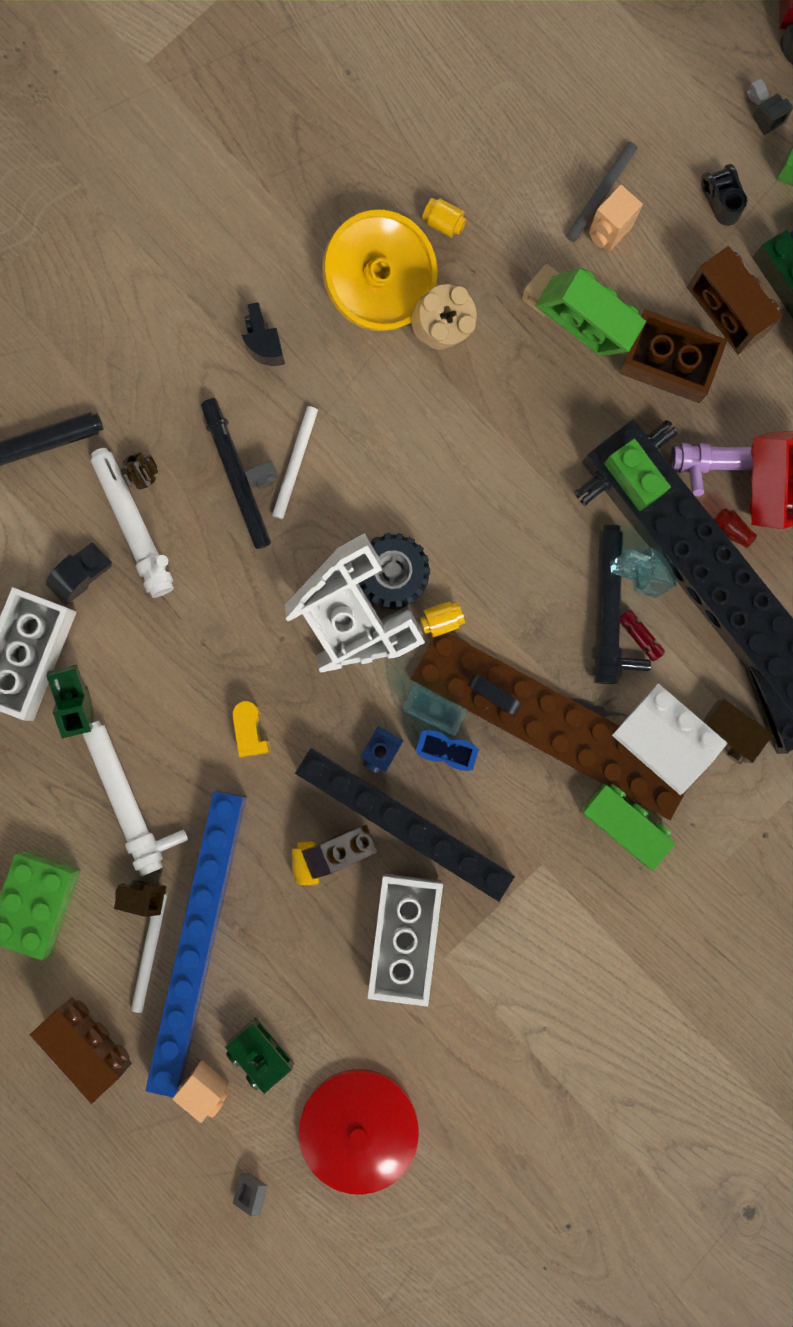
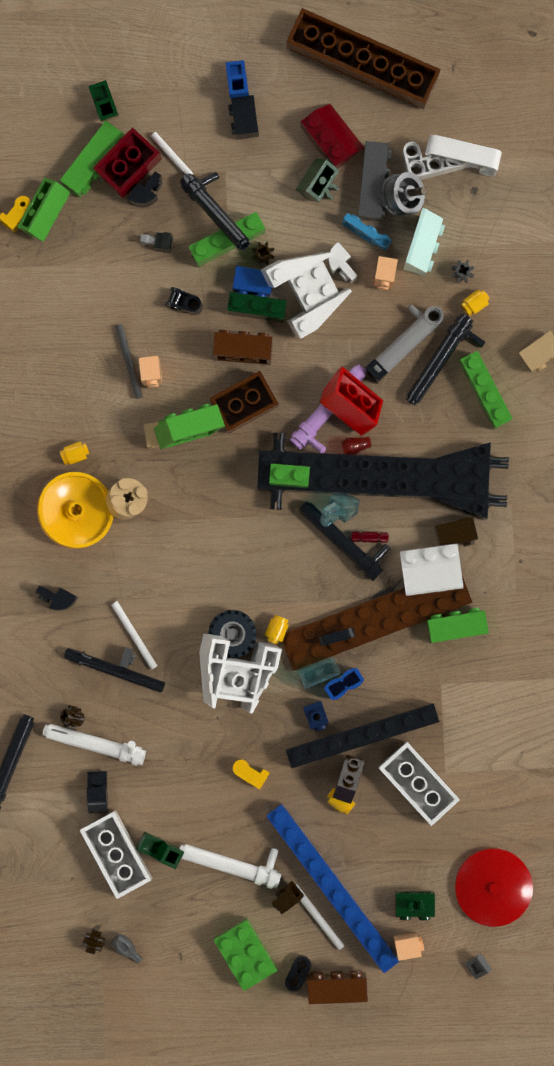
camera: 45 degrees left, 0 degrees up
(65, 991) = (294, 970): none -> black beam

